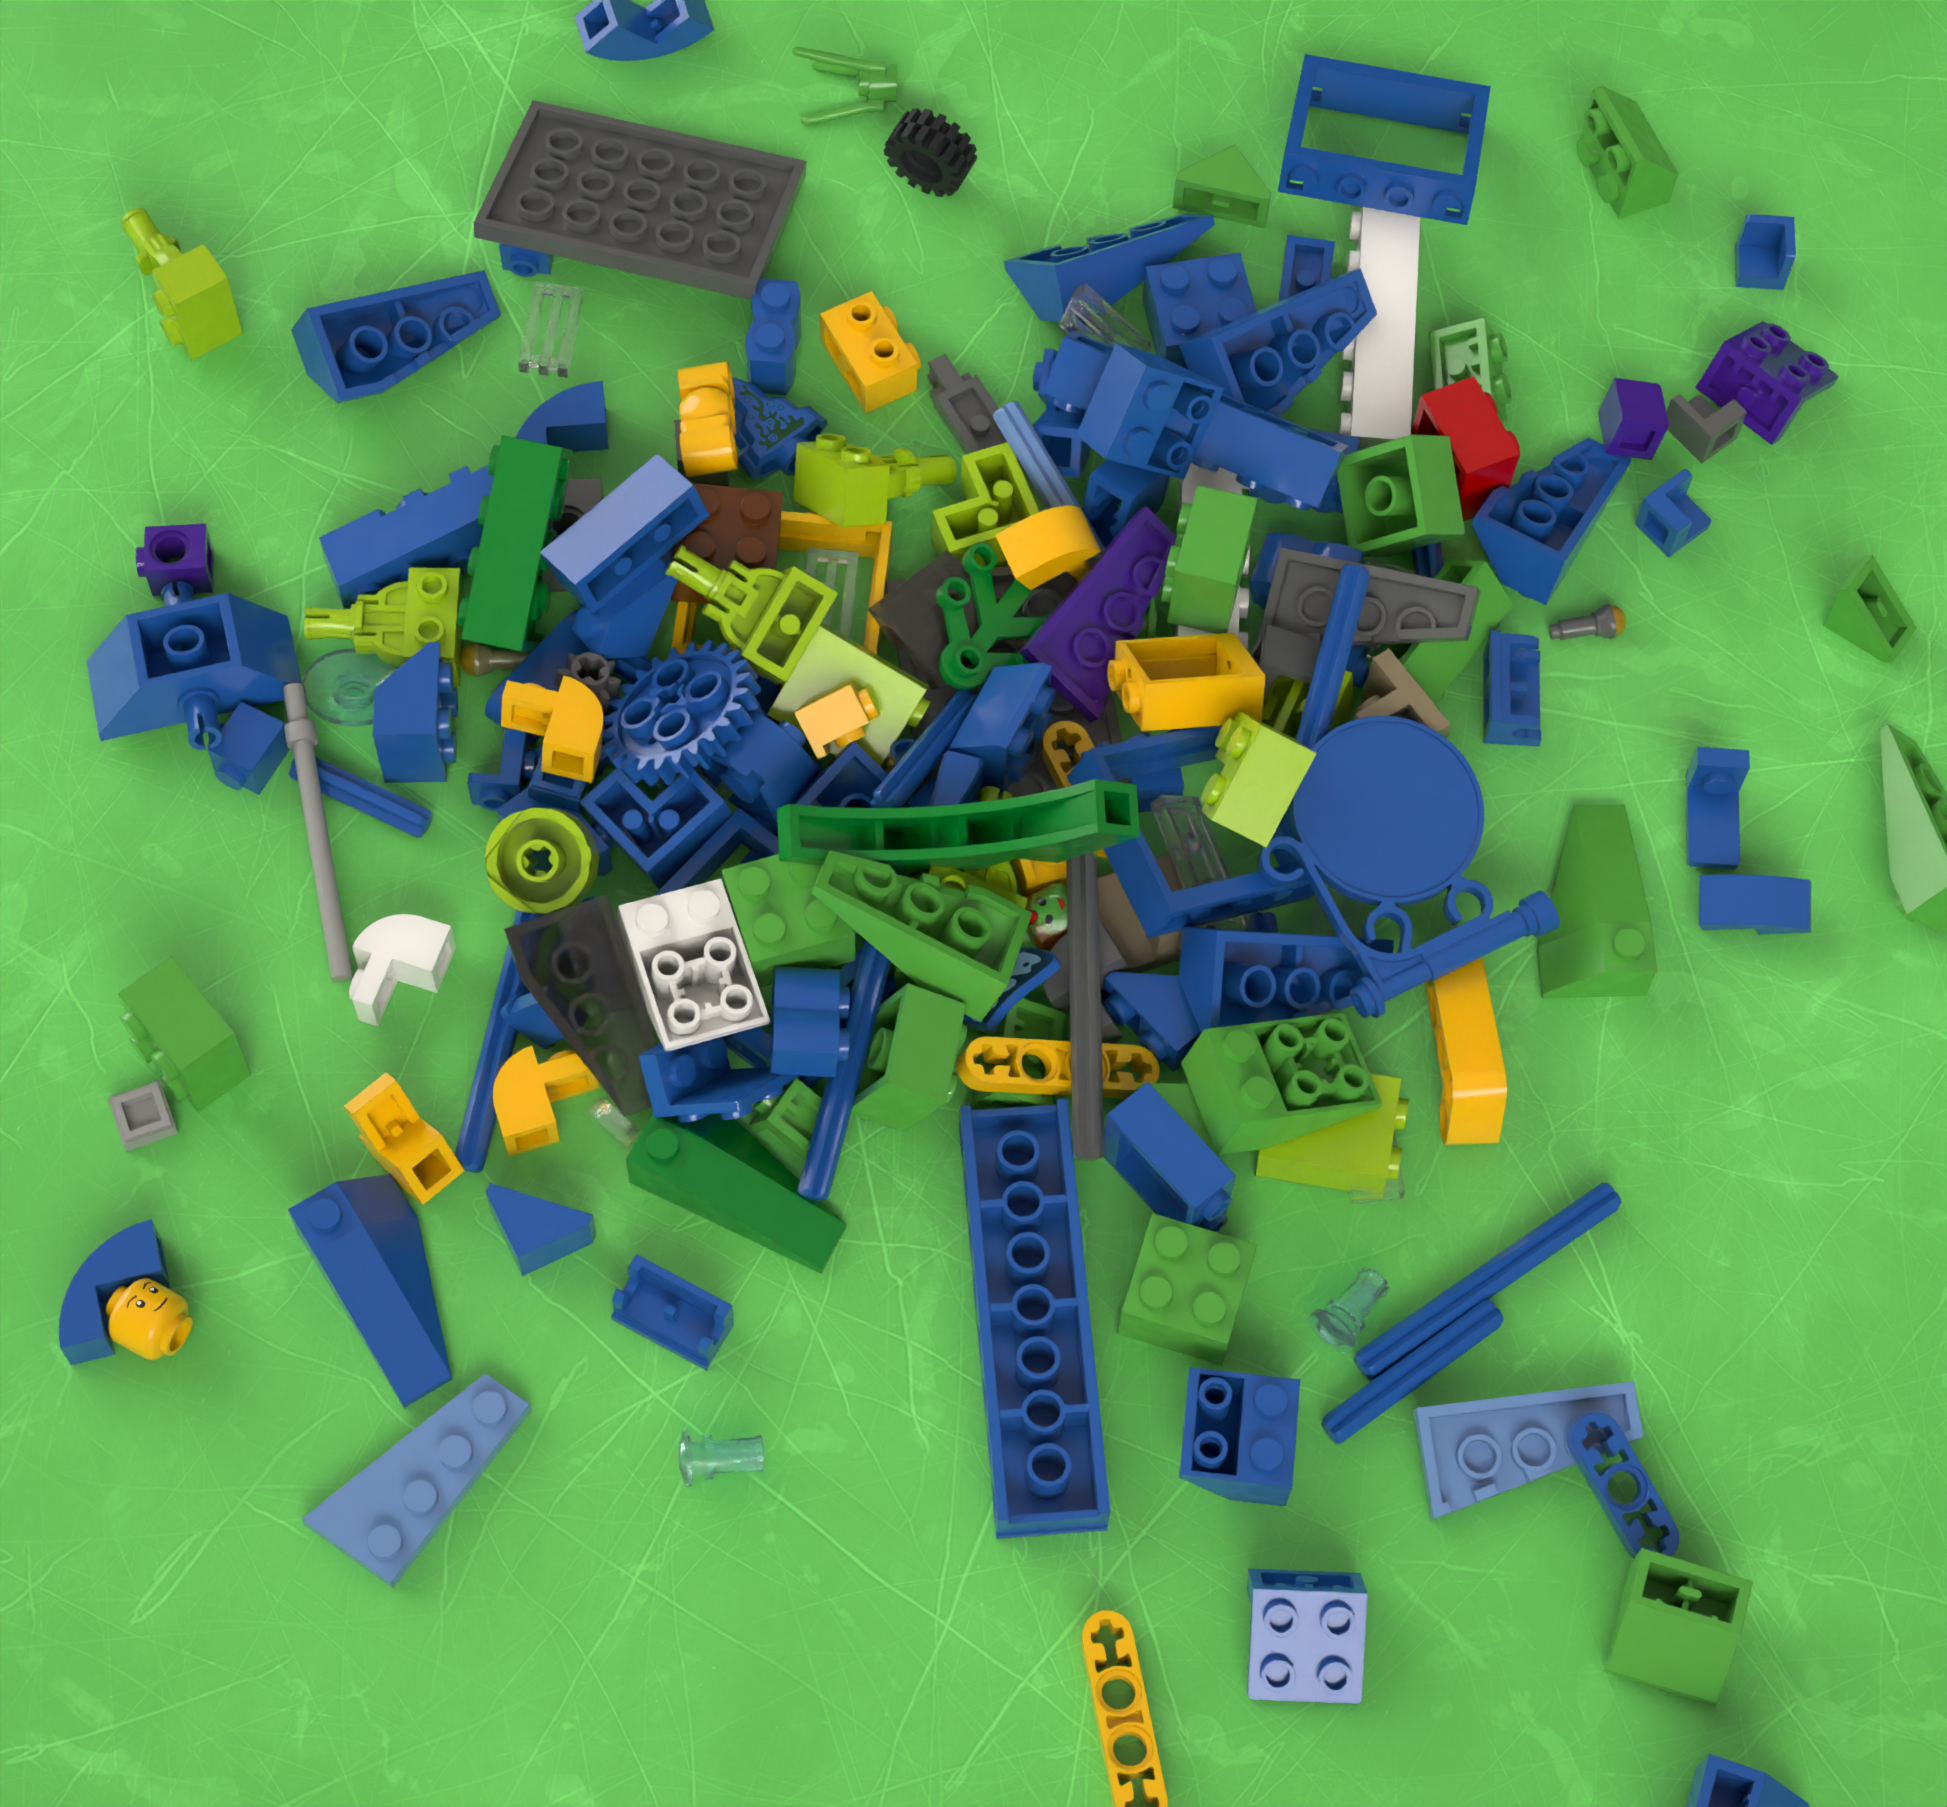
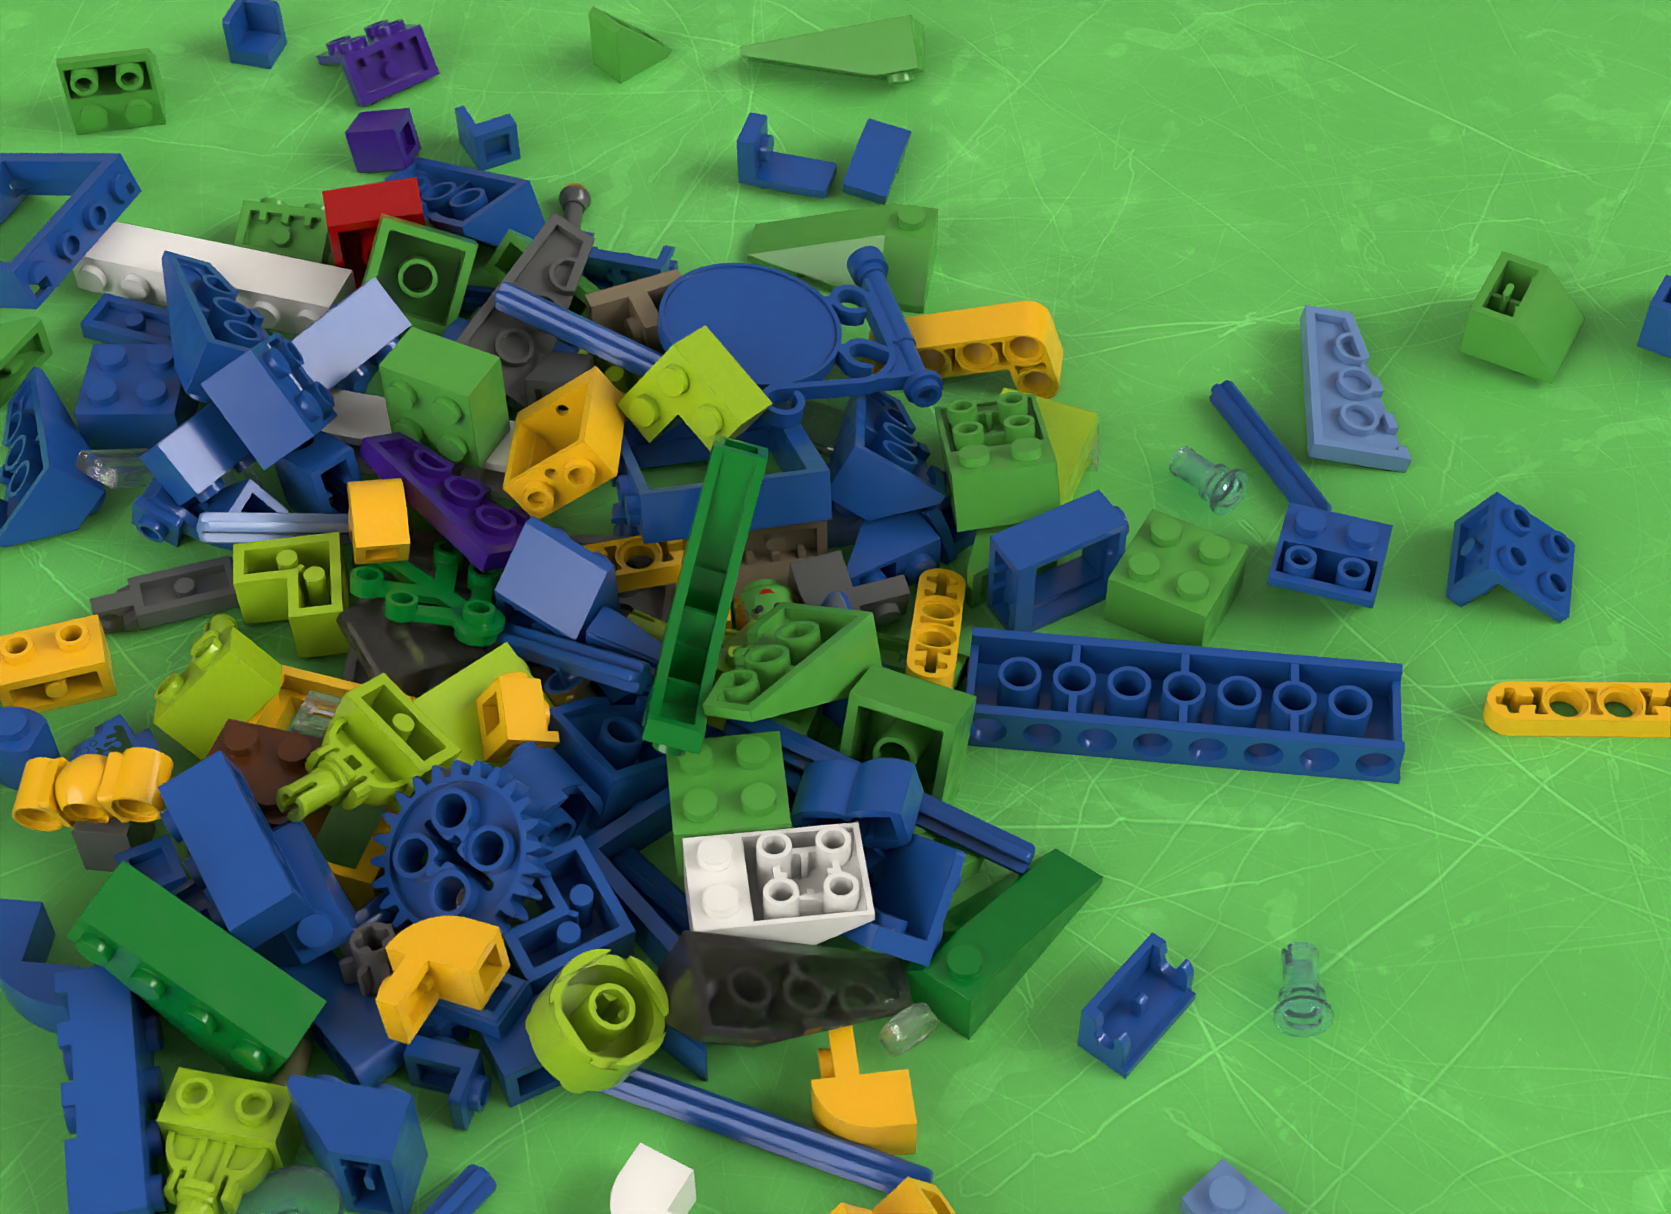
camera: 75 degrees left, 15 degrees down
(531, 1020) = (769, 1080): blue tile -> none
(537, 1228) = (1021, 1125): blue slope -> none
(1085, 1008) = (891, 587): dark grey axle -> none
(1487, 1280) = (1191, 390): blue axle -> none
(1616, 1443) = (1367, 332): blue beam -> none
(1703, 428) = (415, 95): dark grey panel -> none

